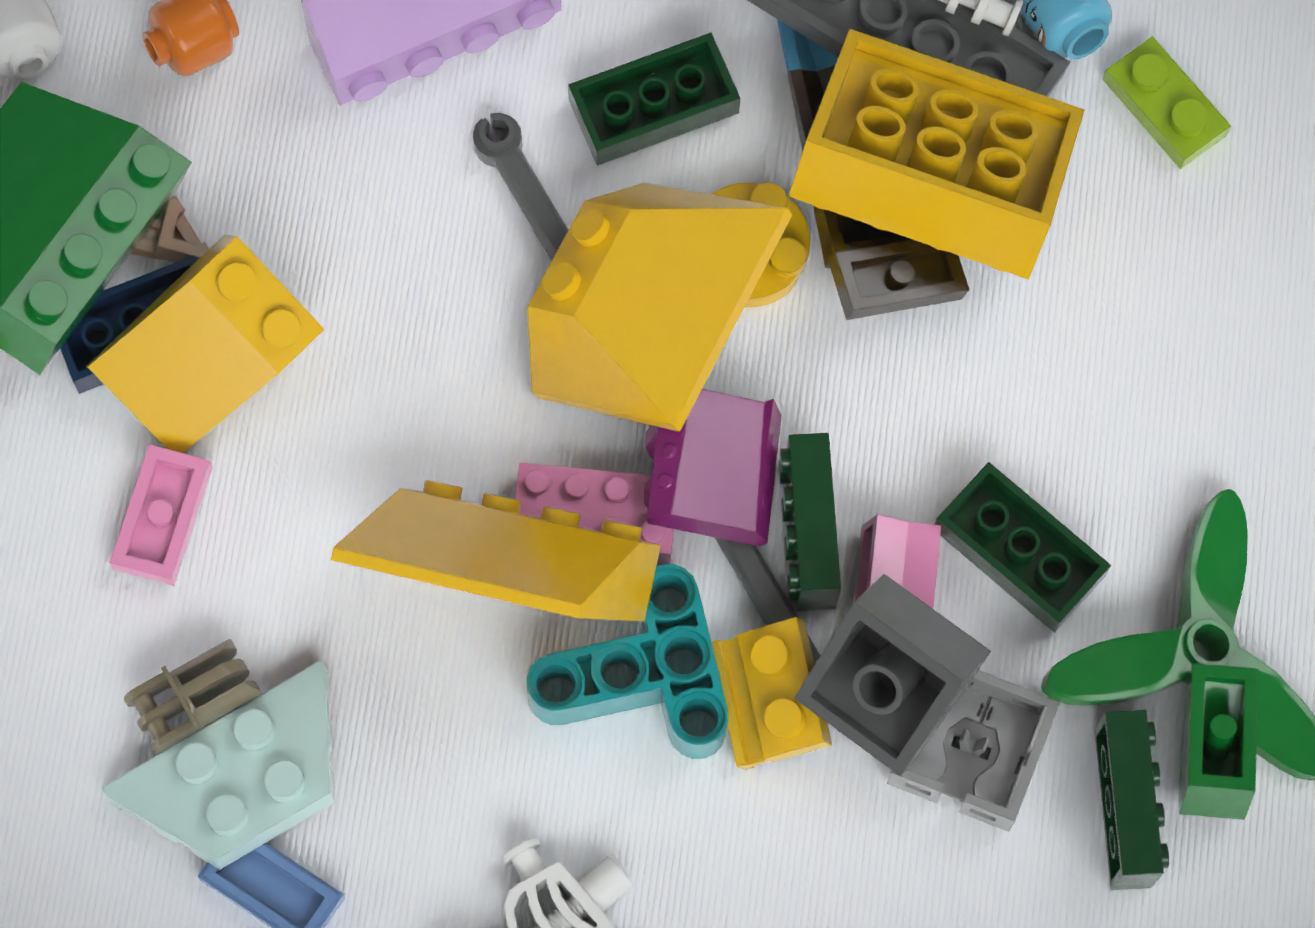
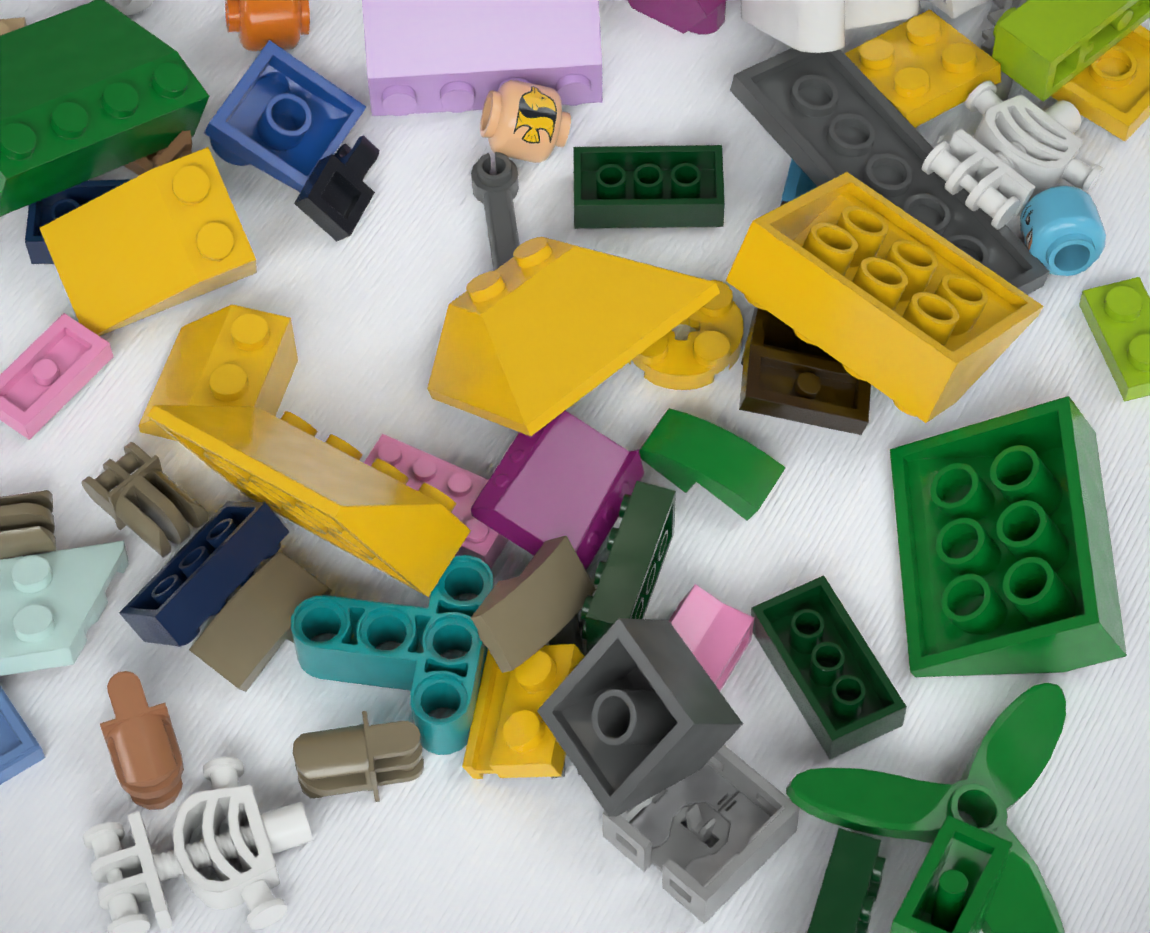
camera: 25 degrees right, 15 degrees down
(264, 150) = (282, 118): none -> blue slope
(320, 610) = (145, 500): none -> dark tan arm
(330, 457) = (227, 361): none -> yellow slope
(350, 208) = (336, 190): none -> black plate
(418, 668) = (205, 573): none -> dark blue piece
(439, 858) = (142, 745): none -> nougat arm
(489, 693) = (256, 620): none -> dark tan slope
(506, 70) = (524, 121): none -> light nougat head
(639, 798) = (358, 758): none -> dark tan arm
(746, 598) = (533, 607): none -> dark tan slope
(829, 373) = (698, 451): none -> green slope
(1134, 367) = (1007, 547): none -> green slope

